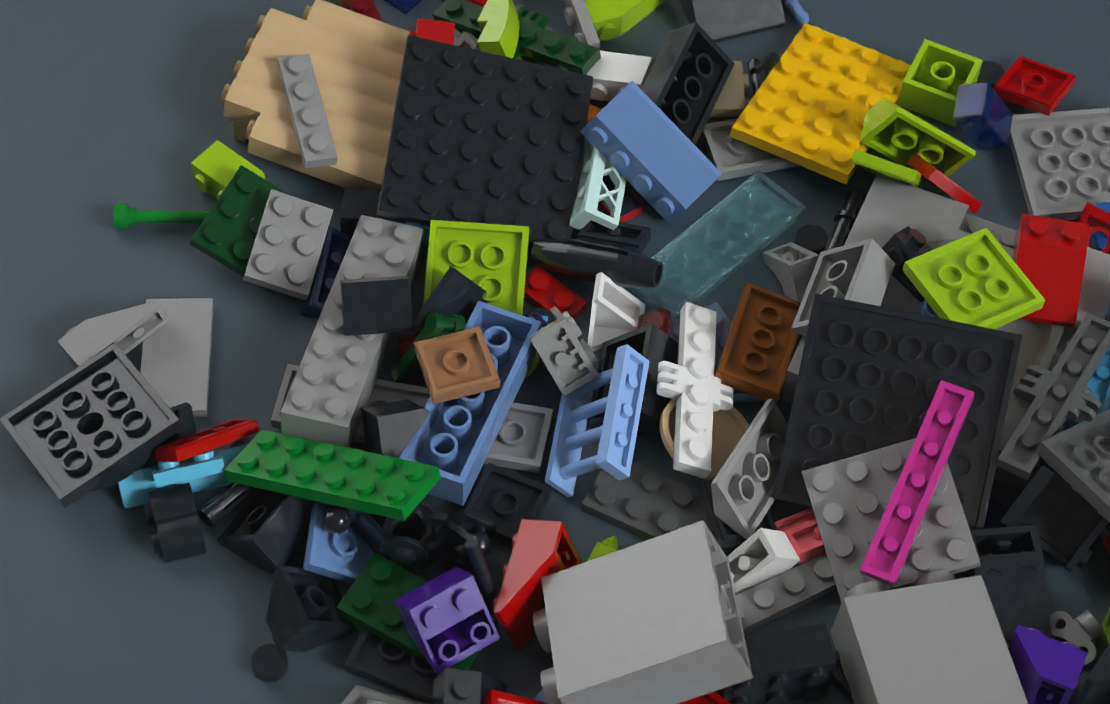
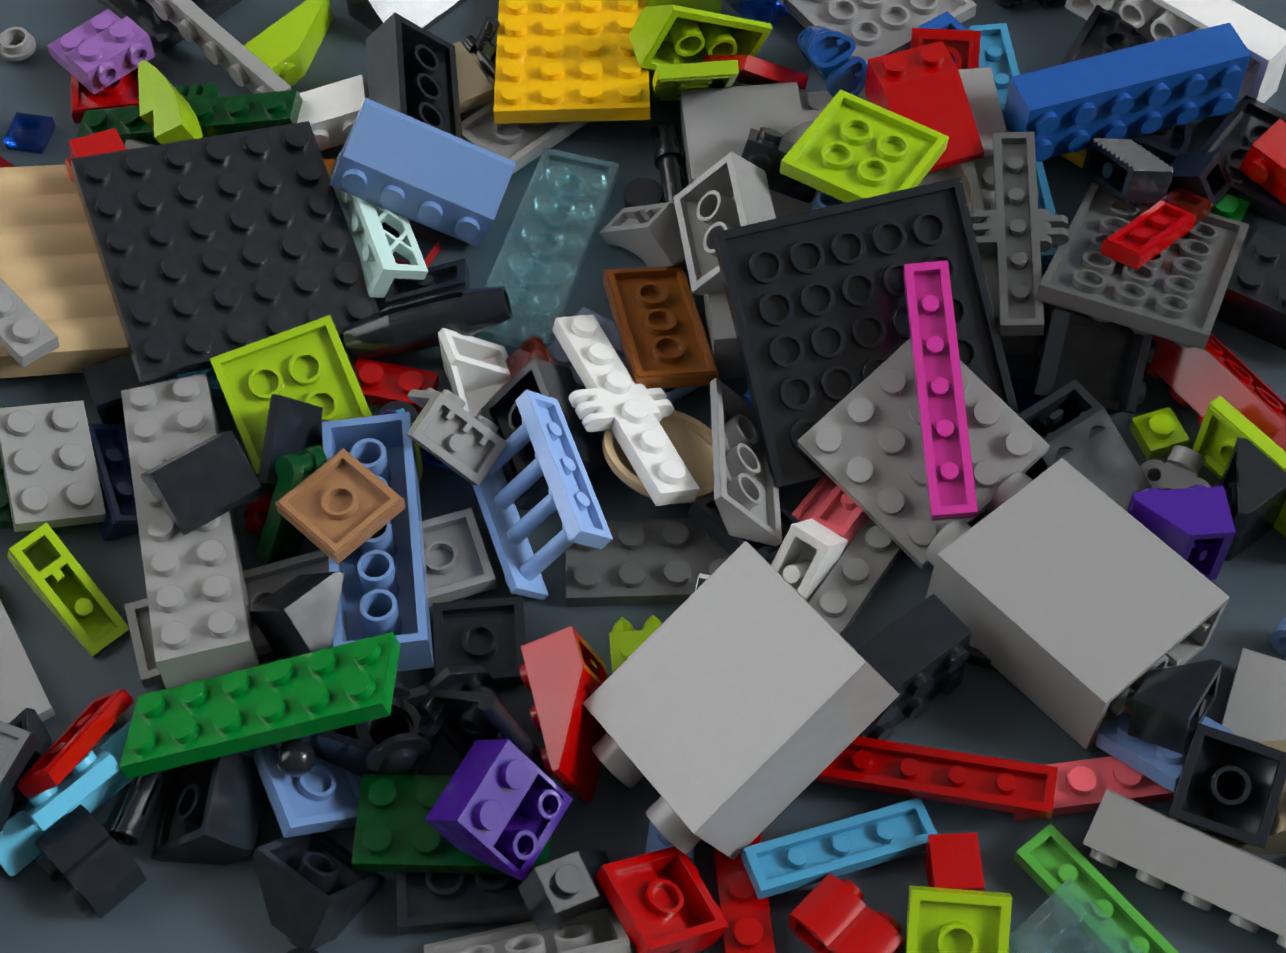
camera: 25 degrees left, 0 degrees up
(256, 336) = (66, 589): none -> lime slope
(1006, 194) = (832, 57): none -> blue piece
(1084, 595) = (1158, 432): none -> lime plate

